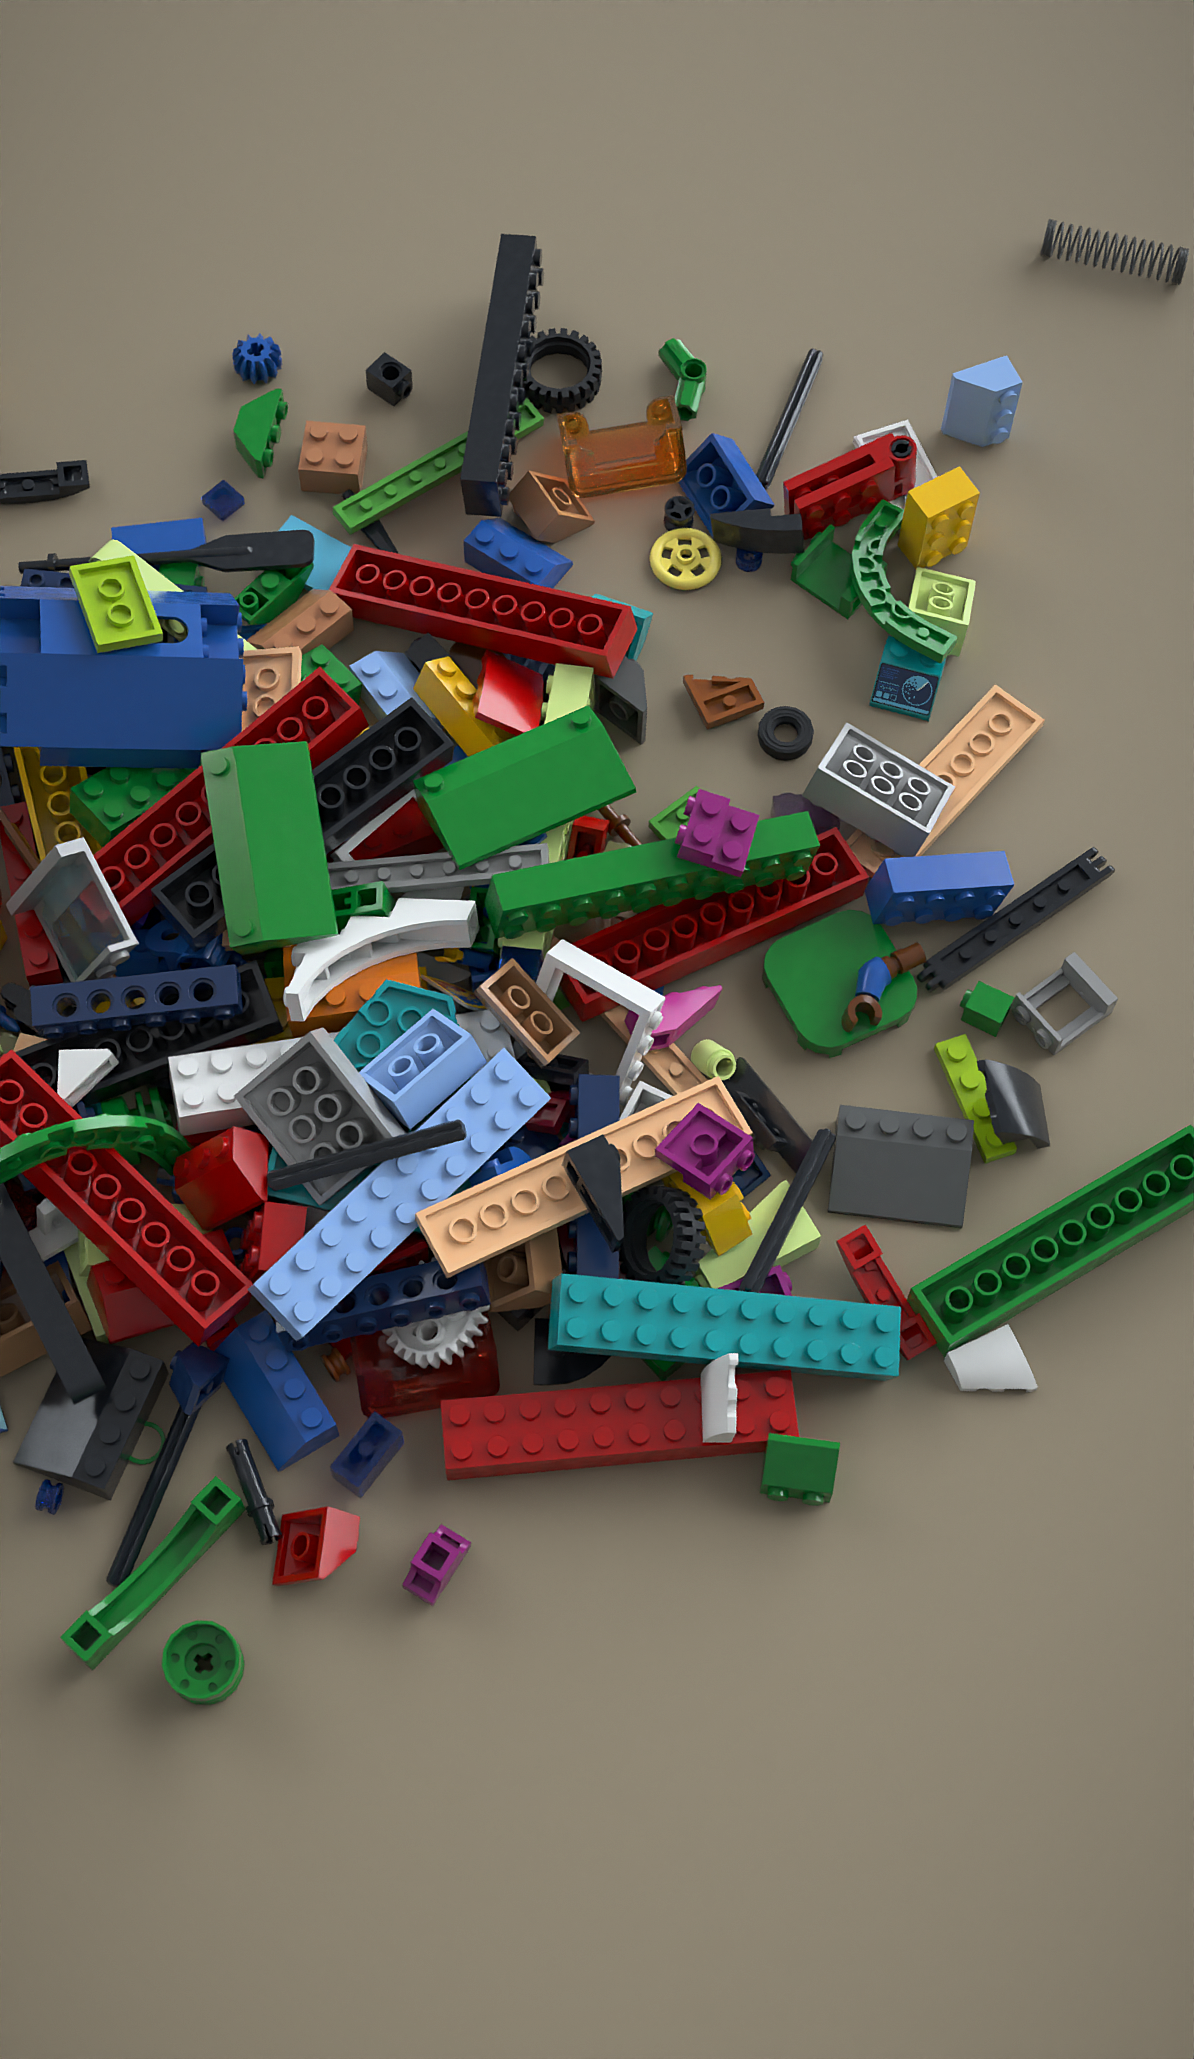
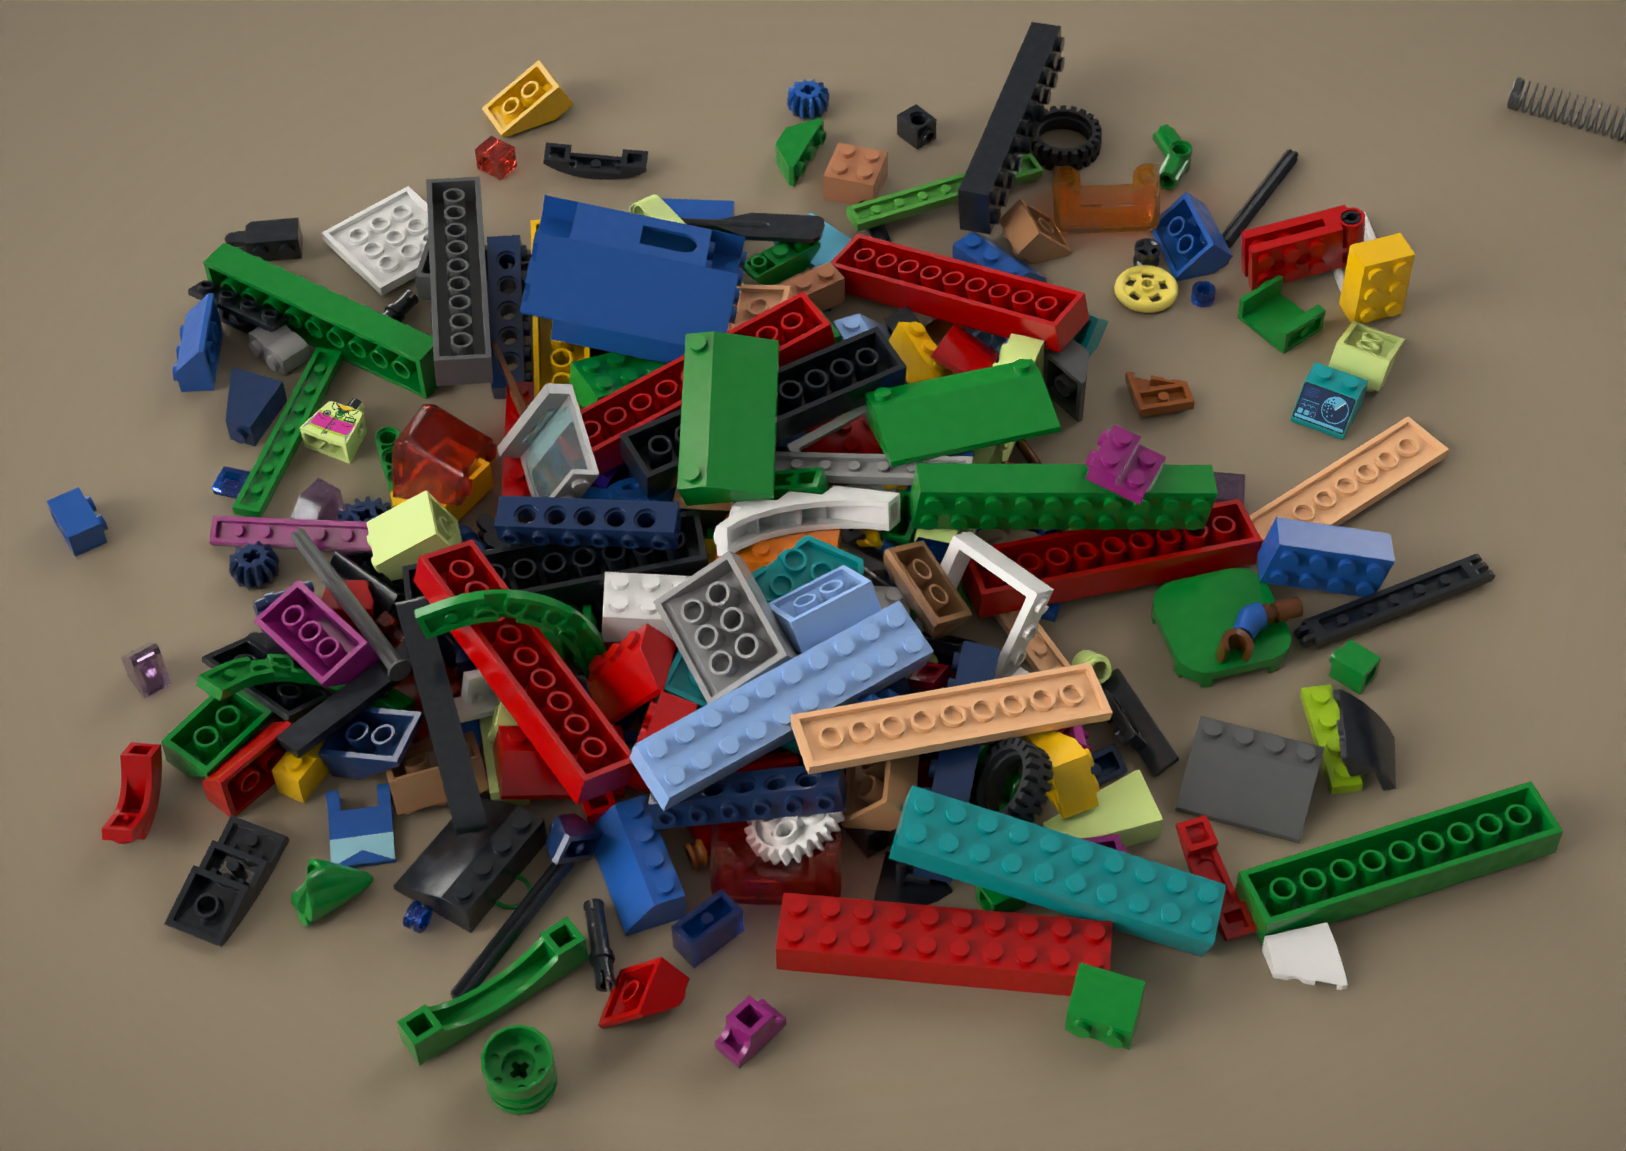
camera: 15 degrees right, 15 degrees down
(81, 1070) = (530, 569): white slope -> none
(115, 604) = (640, 213): lime plate -> none
(223, 500) = (755, 195): clear blue plate -> none
(367, 1155) = (758, 661): black axle -> none
(597, 1178) = (959, 714): black slope -> none
(679, 1014) = (1066, 625): dark pink slope -> none
(706, 1151) = (1066, 714): magenta plate -> none
(719, 1399) = (1039, 925): white slope -> none
(759, 531) = (1214, 270): black slope -> none
(788, 1211) = (1137, 789): black axle -> none
(789, 716) = (1207, 442): black tyre -> none
(874, 587) = (1309, 326): green plate -> none
(878, 791) = (1282, 475): light grey slope -> none
(982, 402) = (1432, 199): light blue slope -> none
(1085, 983) = (1450, 659): light grey panel -> none

